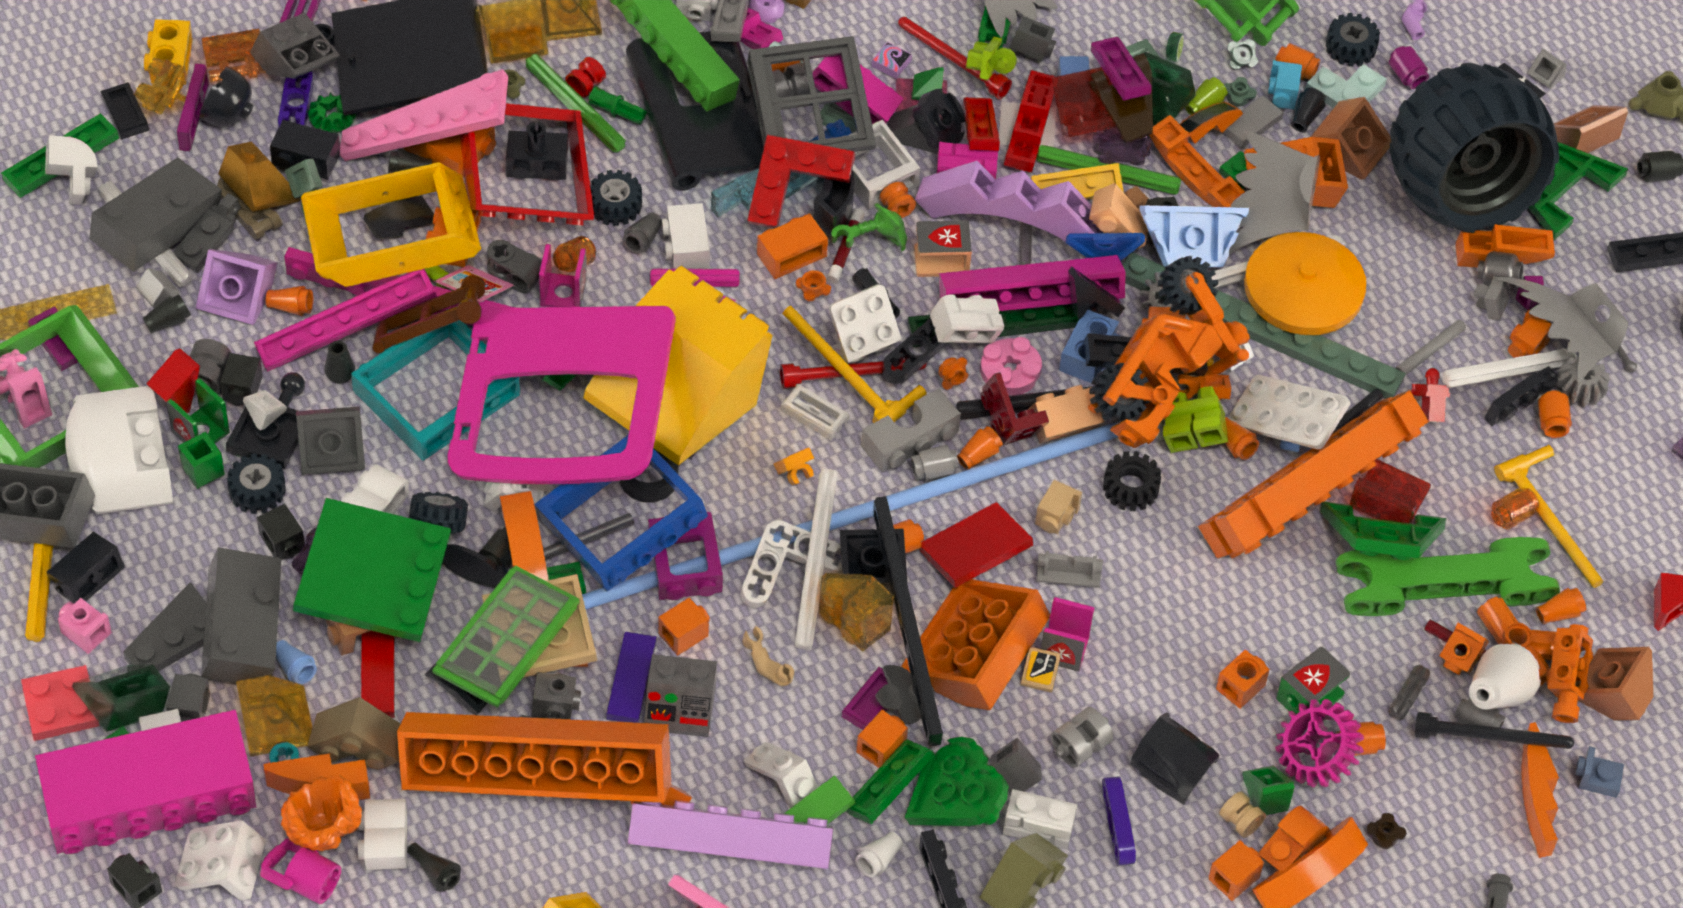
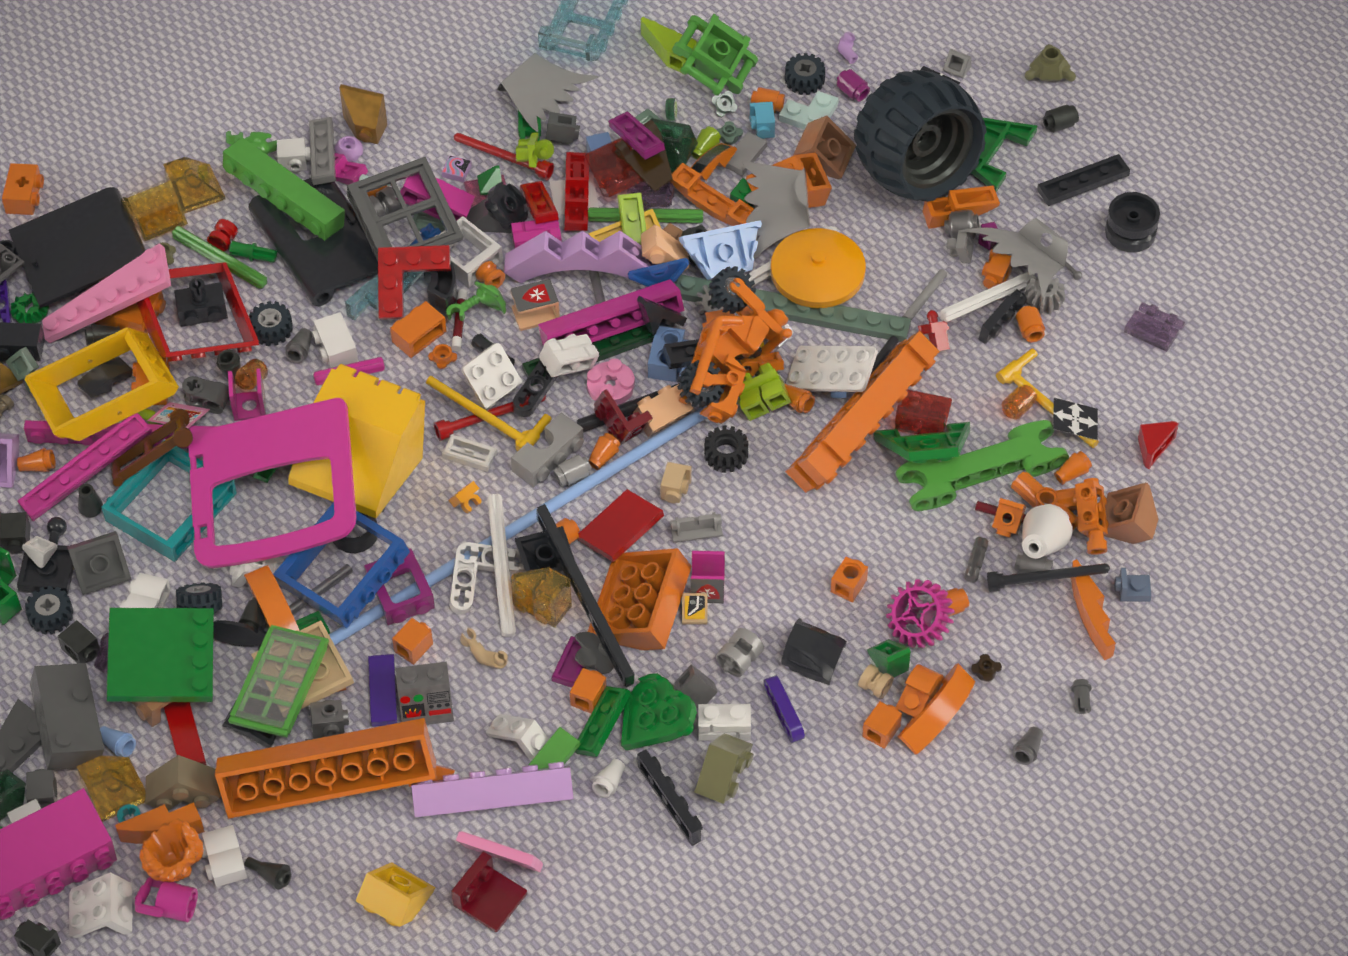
camera: 10 degrees left, 0 degrees up
(550, 232) = (228, 361): none -> pearl dark grey cone
(953, 372) = (568, 397): orange plate -> none
(1090, 166) = (632, 215): none -> lime tile
(1308, 107) = (785, 133): black cone -> none
(1312, 678) = (902, 566): piece -> none
(1580, 546) = (1075, 419): none -> black sticker
(1591, 127) = (1003, 99): nougat slope -> none

